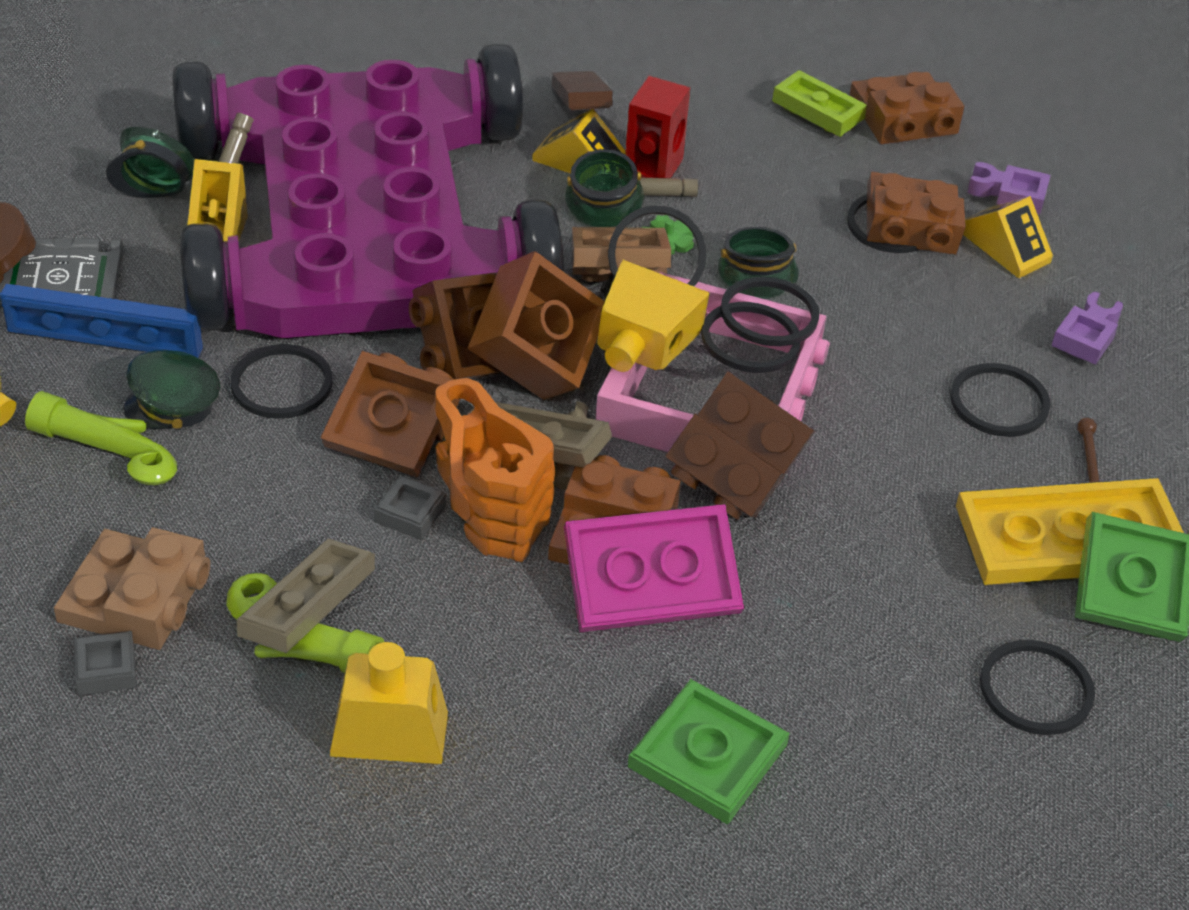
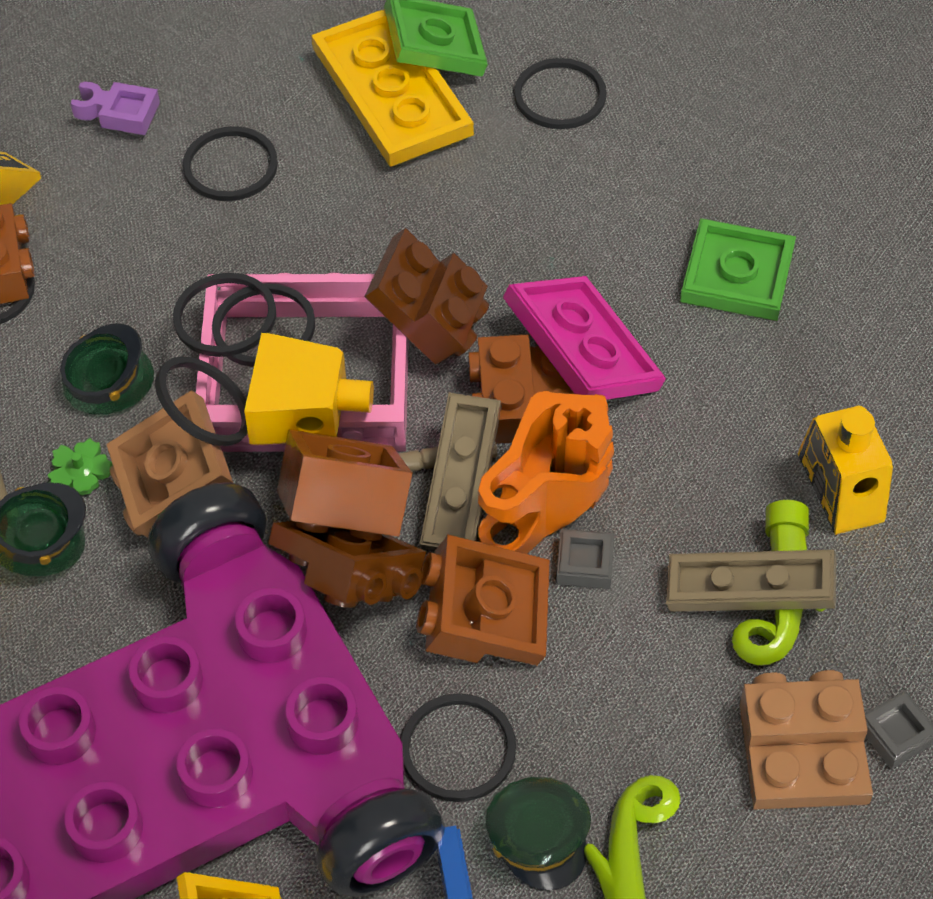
camera: 105 degrees left, 10 degrees up
(1086, 428) = (322, 85): reddish brown hinge -> none

